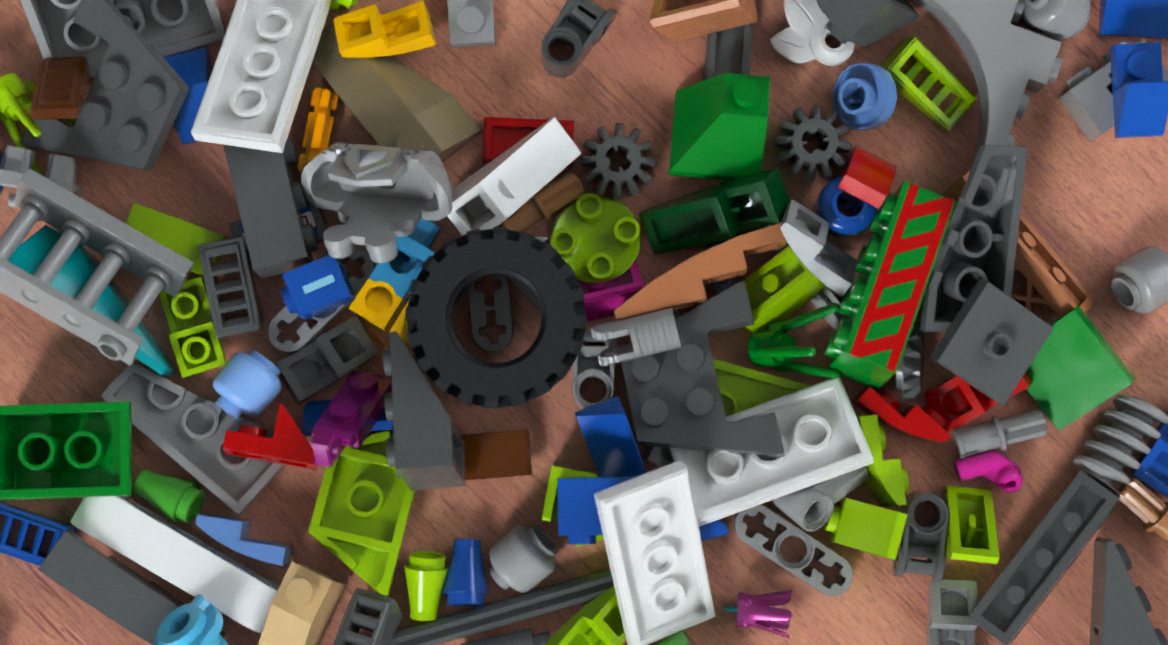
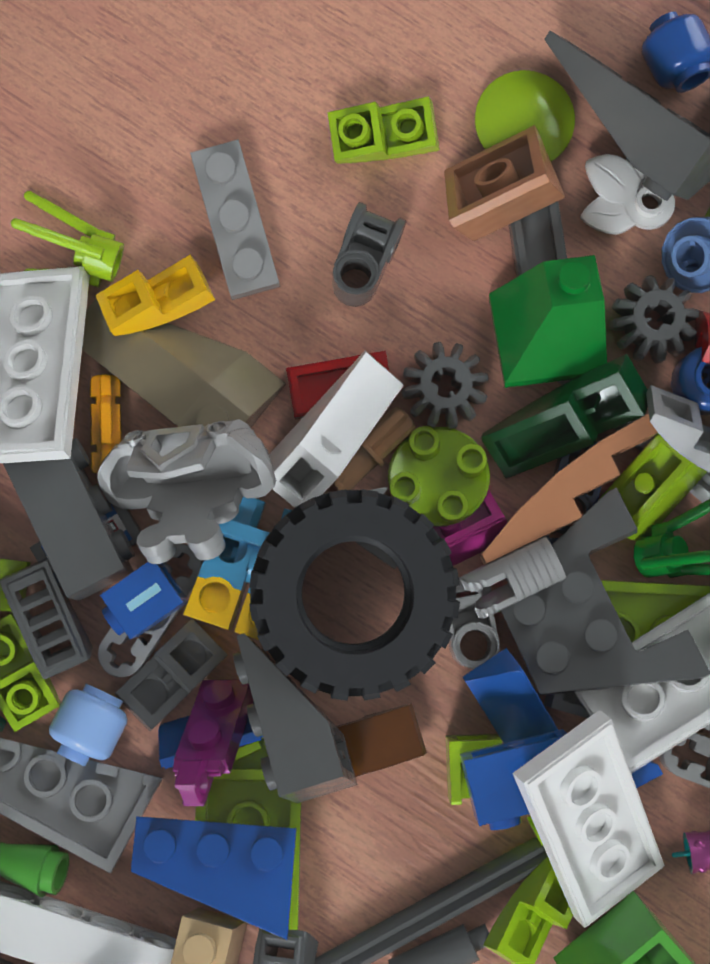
camera: 15 degrees left, 0 degrees up
(234, 534) = (108, 895): medium blue slope -> none
(285, 447) = (147, 784): red slope -> none
(336, 526) = (222, 865): none -> blue wing
(425, 583) = (335, 900): lime cone -> none
(466, 575) = (379, 883): blue cone -> none
(502, 310) = (355, 581): light grey beam -> none
(522, 558) = (438, 849): light grey head -> none

